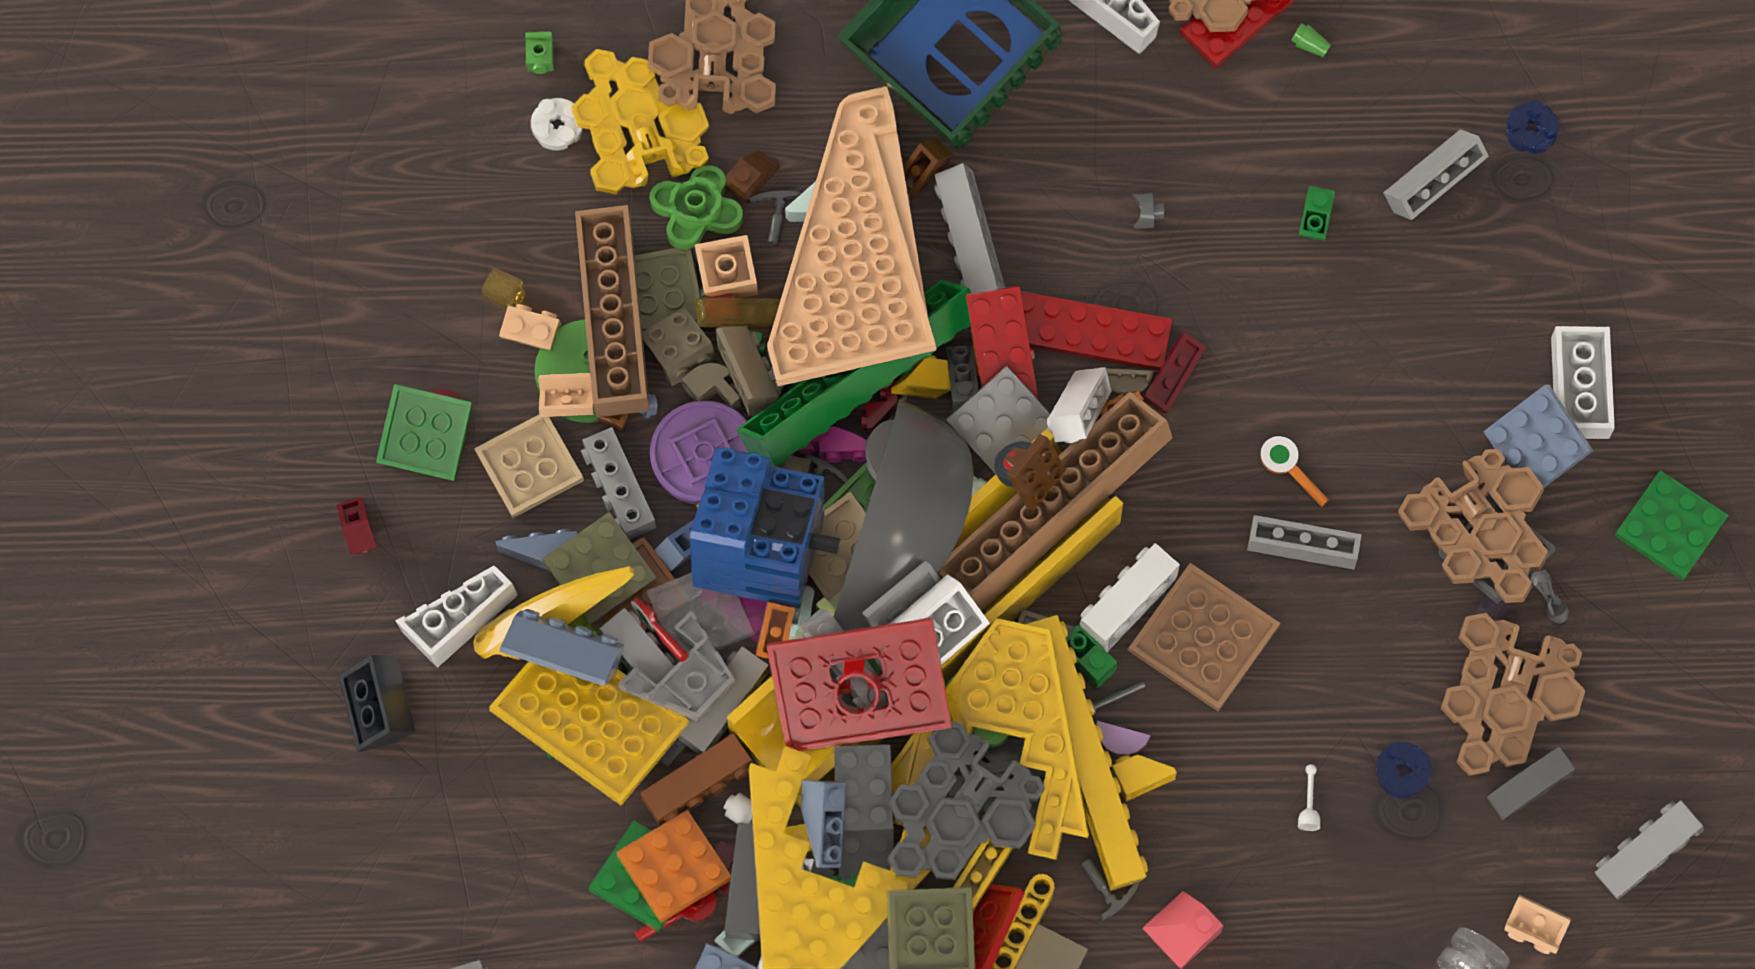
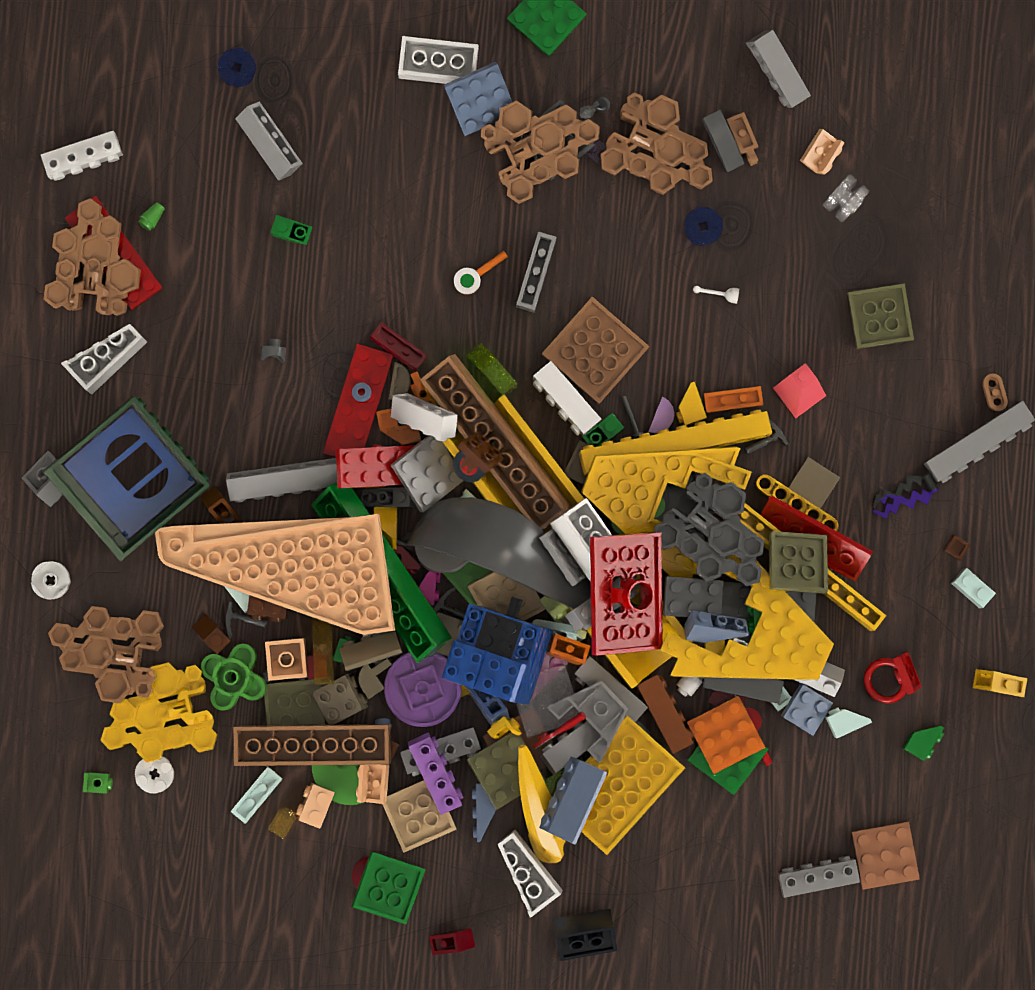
camera: 90 degrees left, 15 degrees up
(539, 253) = (256, 795): none -> light aqua plate
(586, 471) = (435, 773): none -> medium lavender brick
(658, 557) = (503, 726): none -> yellow bracket
(790, 229) = (258, 608): none -> reddish brown brick
(1058, 380) = (390, 427): none -> orange tile
(1101, 334) = (366, 396): none -> sand blue plate
(1154, 496) = (491, 370): none -> clear neon green brick
(1158, 834) = (733, 399): none -> orange plate
(1541, 812) = (743, 137): none -> medium nougat plate

